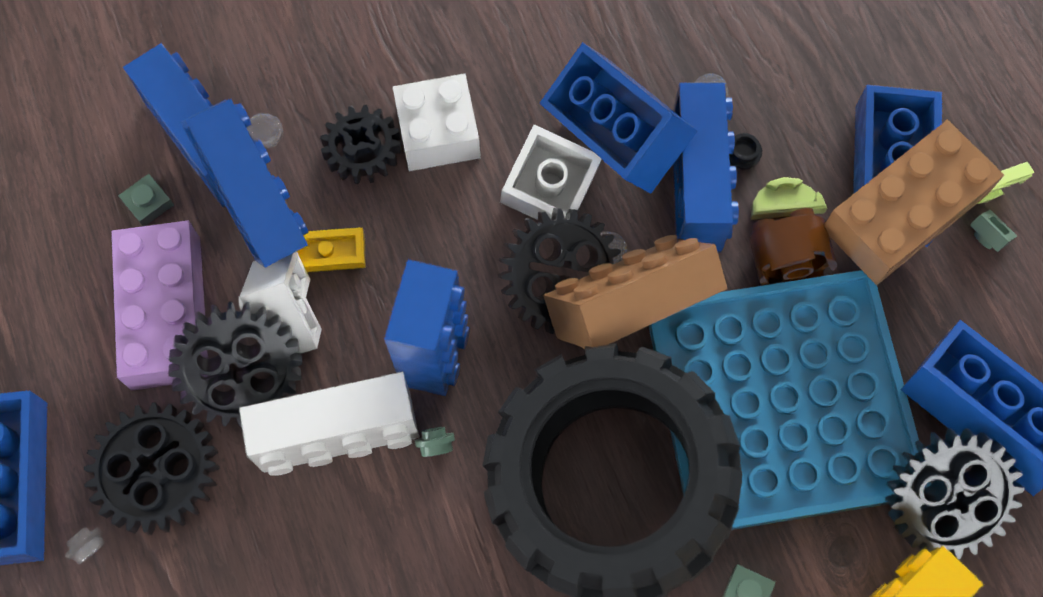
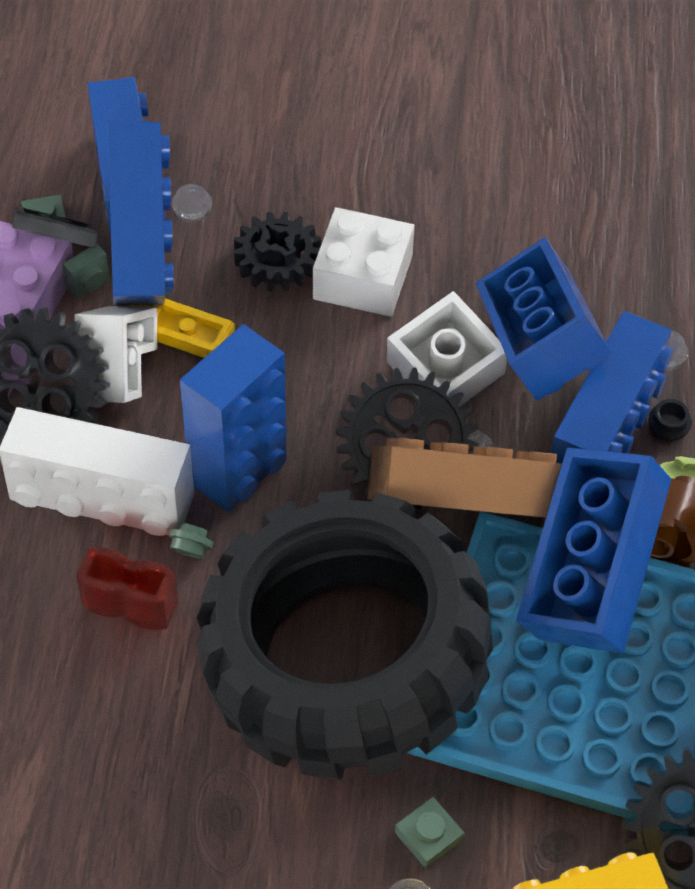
camera: 25 degrees right, 15 degrees down
(166, 213) = (54, 226): none -> black tile
(213, 237) = (86, 271): none -> sand green plate
(399, 515) = (122, 587): none -> clear red brick
(769, 309) = (594, 549): none -> blue brick

